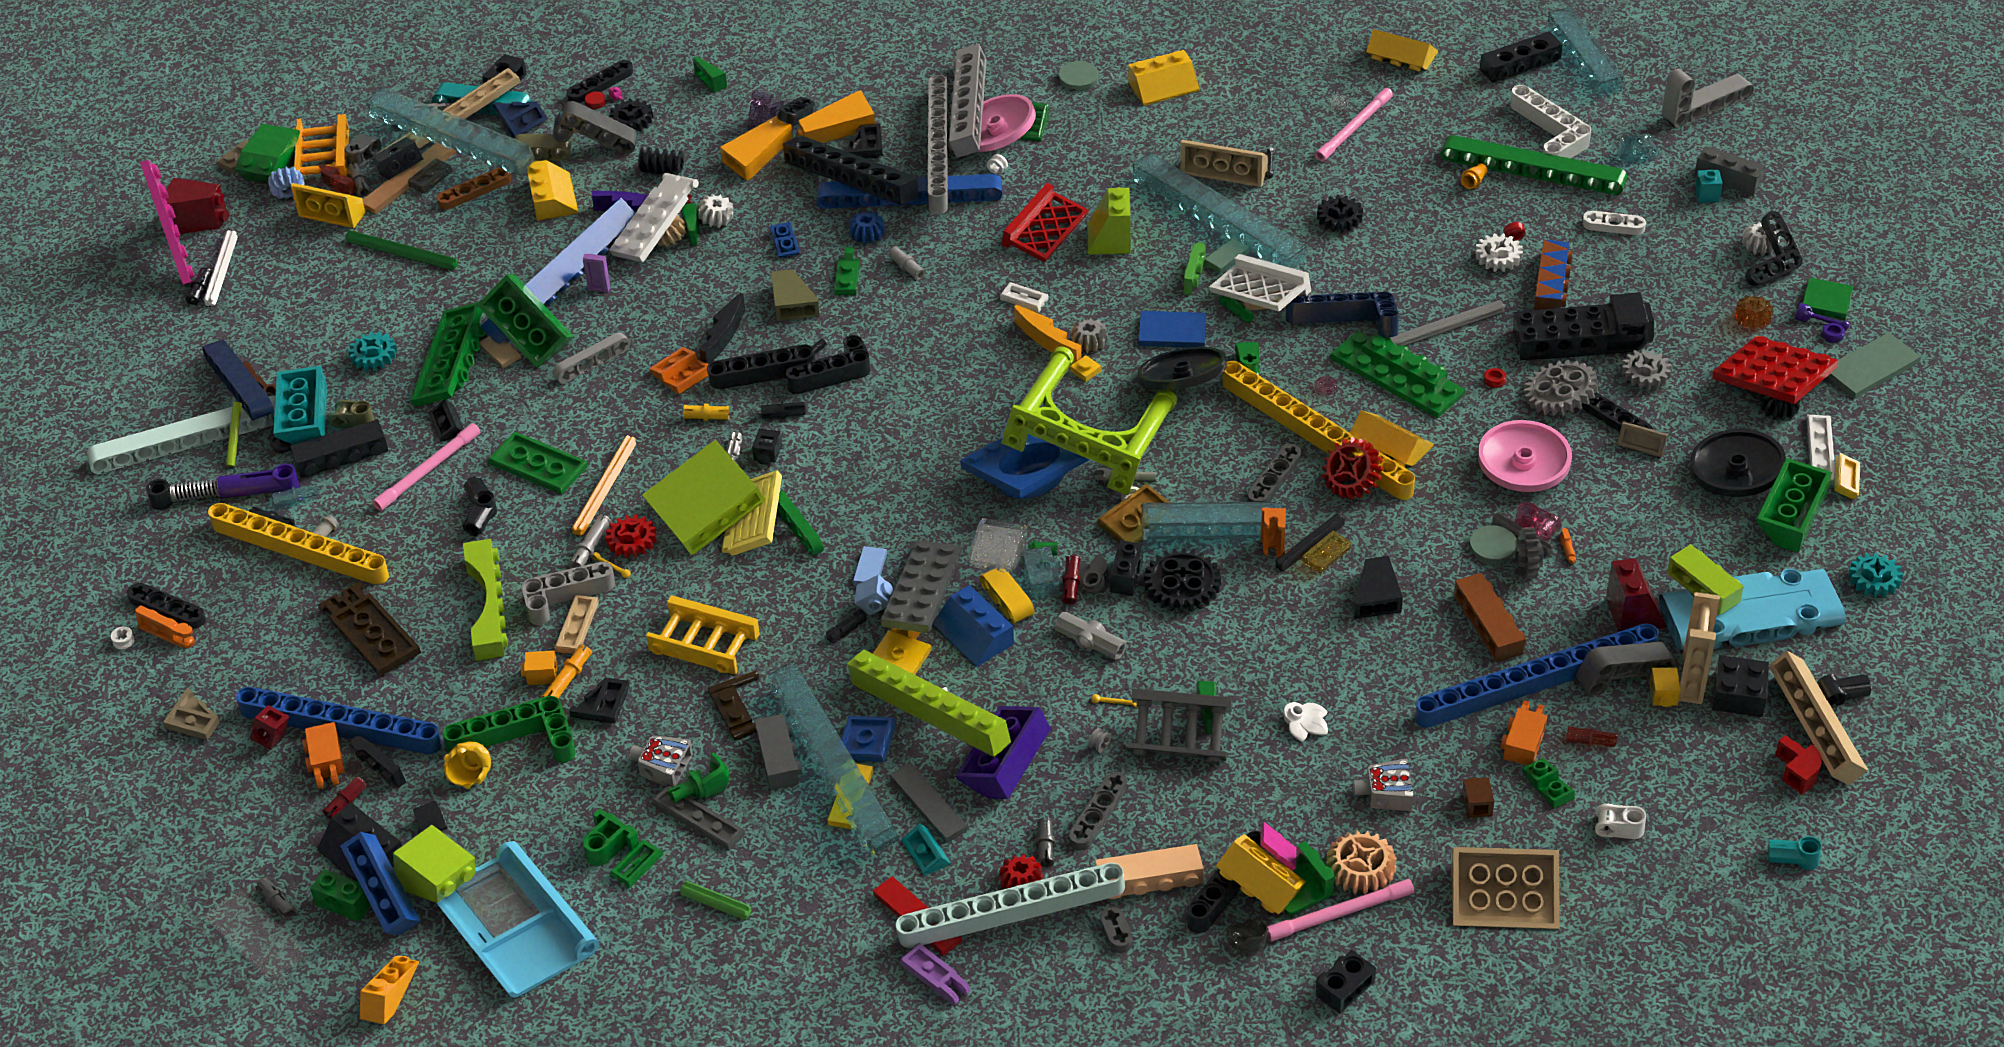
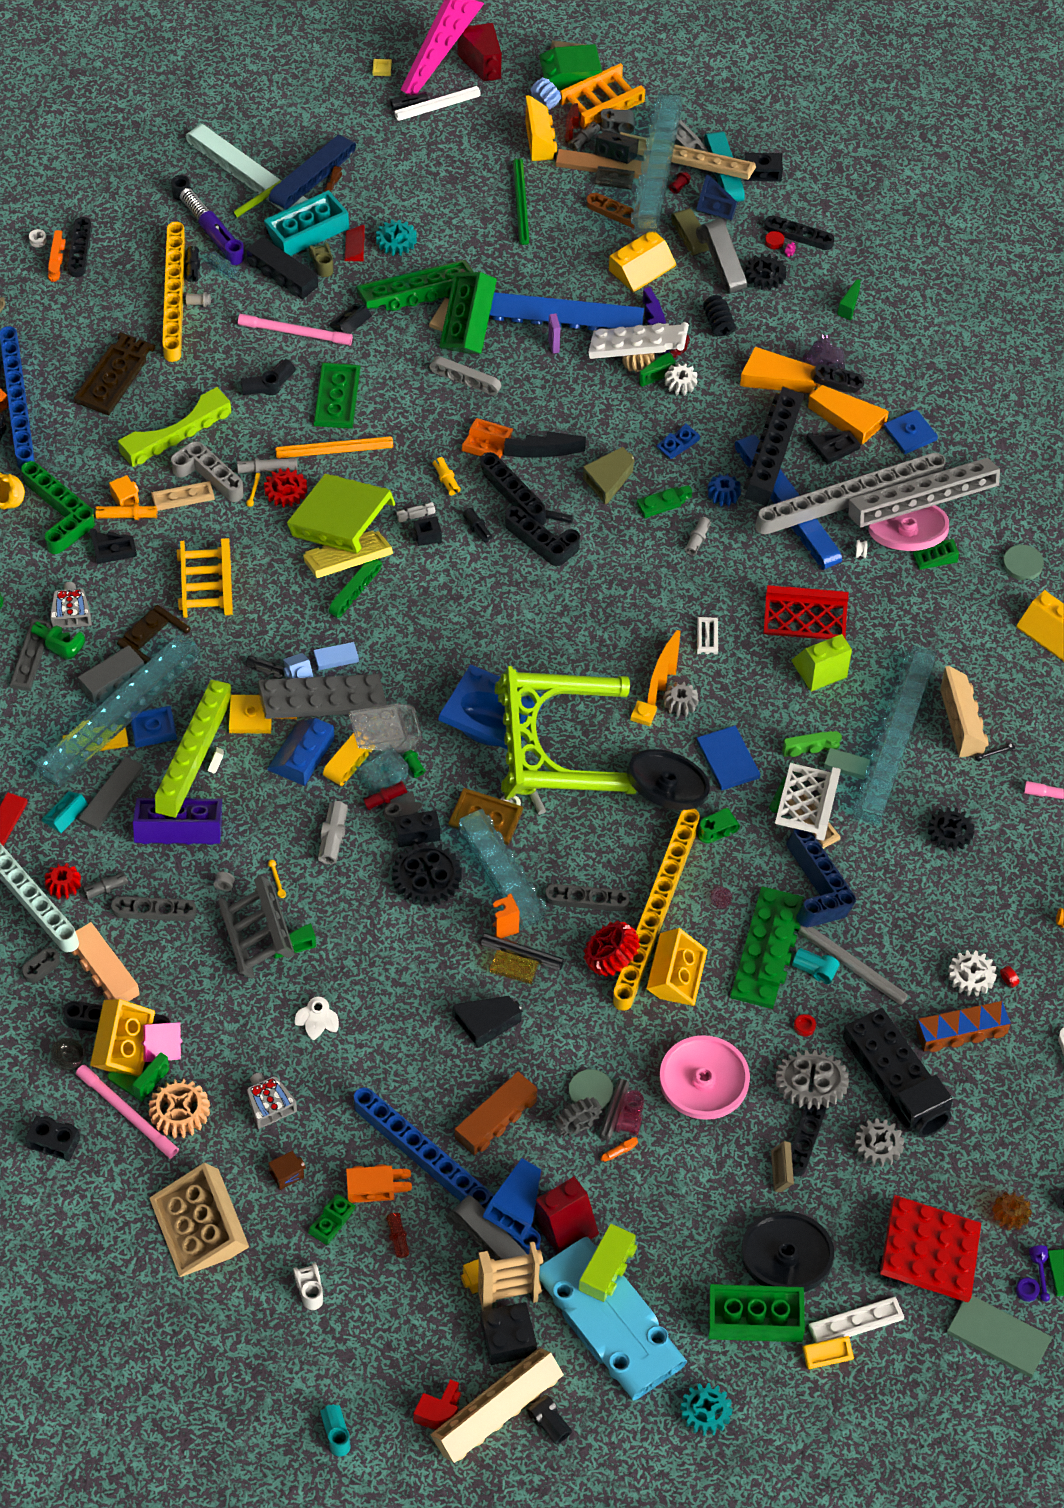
camera: 60 degrees right, 10 degrees up
(134, 293) = (382, 67): none -> light yellow tile
(352, 384) = (355, 244): none -> red slope
(885, 92) = (910, 431): none -> blue plate
(1440, 343) = (820, 967): none -> teal piece
(1605, 622) = (515, 1200): none -> blue slope

